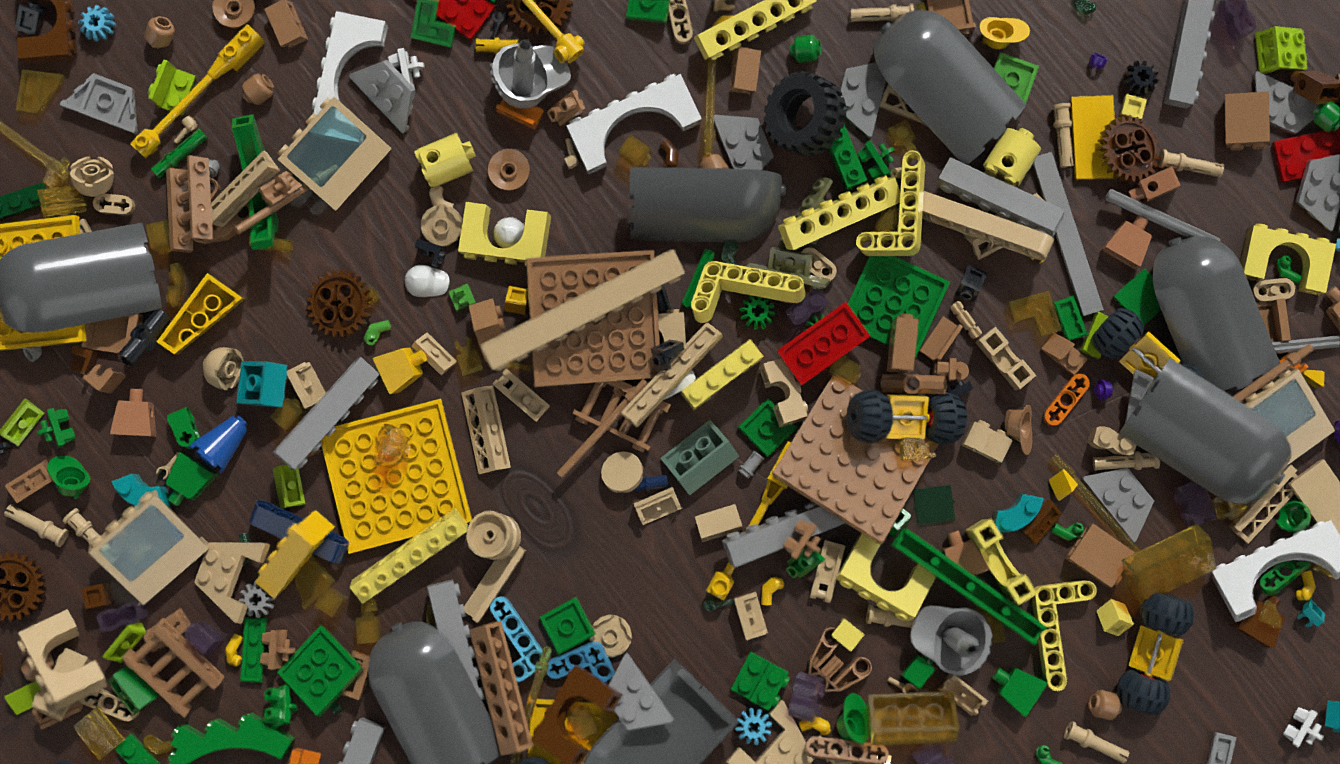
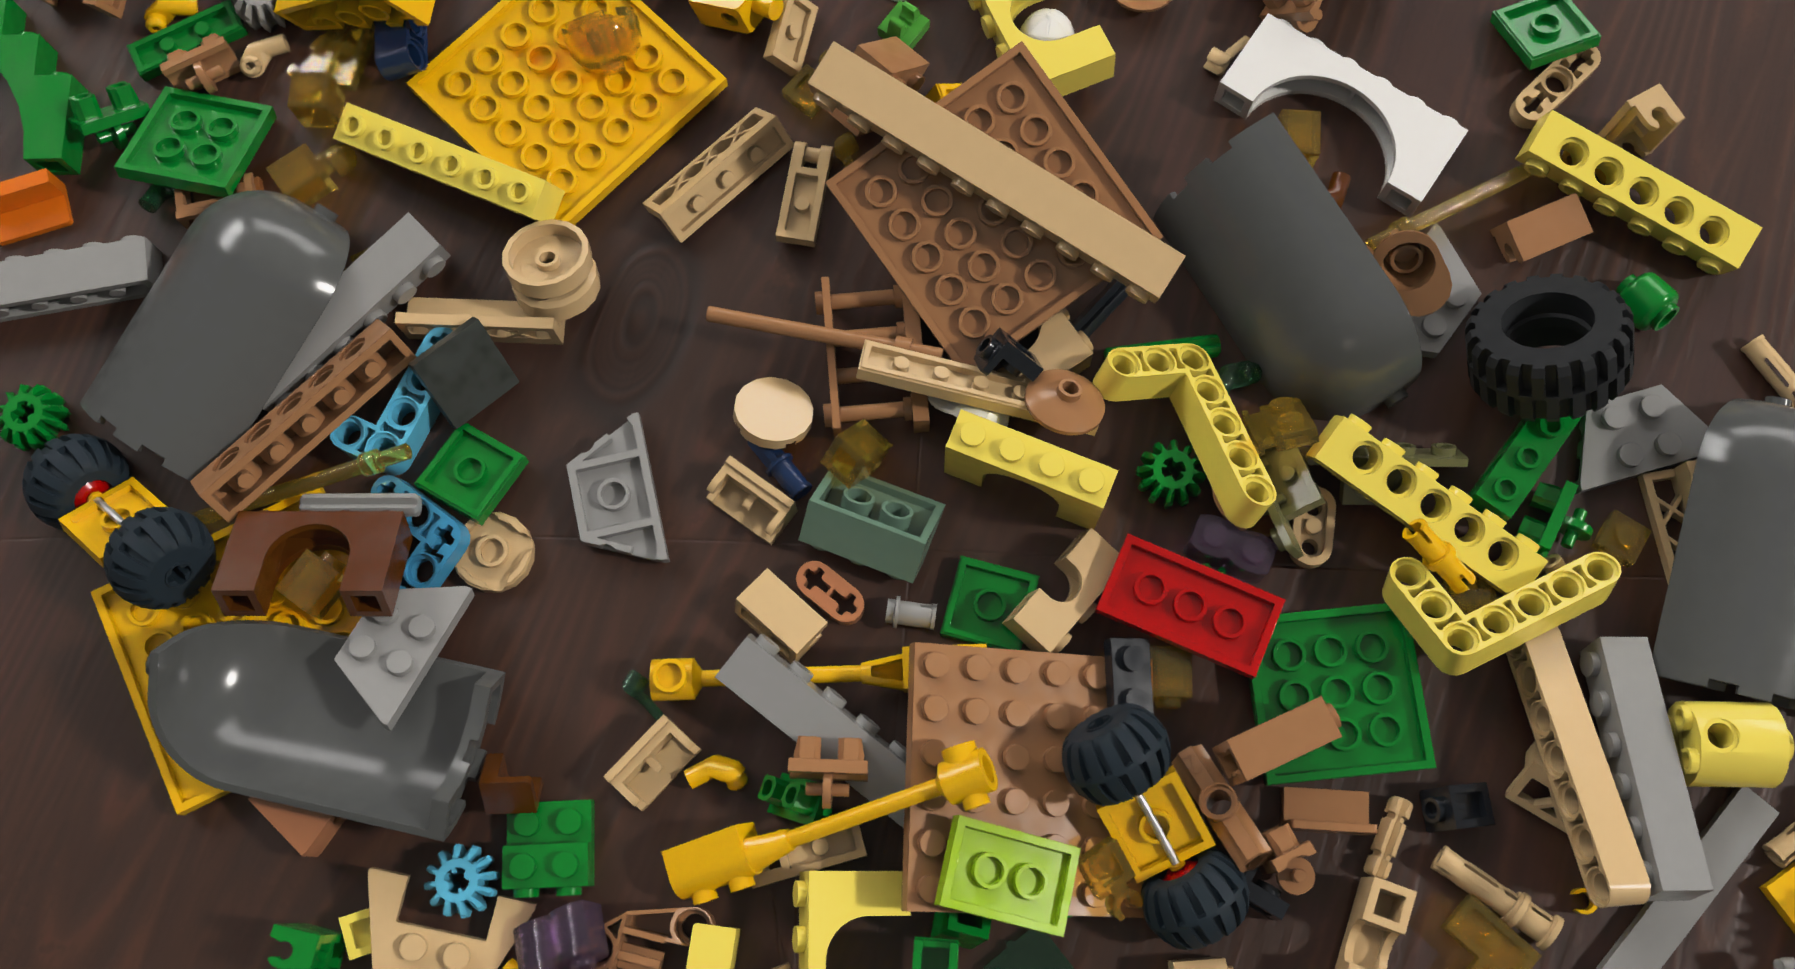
camera: 65 degrees right, 10 degrees down
(285, 617) = (259, 53): none -> tan arm
(520, 603) = (464, 372): none -> pearl dark grey tile
(556, 683) = (407, 502): none -> light grey axle
(618, 564) = (618, 496): none -> light grey wing
(665, 446) = (856, 453): none -> clear yellow brick
(706, 346) = (1064, 402): none -> medium nougat dish
(717, 490) = (824, 600): none -> nougat beam
(727, 686) = (505, 793): none -> reddish brown panel
(732, 147) = (1415, 270): none -> medium nougat piece
(767, 252) = (1280, 425): none -> clear yellow plate
(814, 600) = (740, 853): none -> yellow bar
(837, 388) = (1128, 672): none -> black hinge
(866, 224) = (1438, 556): none -> yellow pin
(892, 492) = (1007, 876): none -> lime plate
(1024, 287) = (1514, 908): none -> tan pin

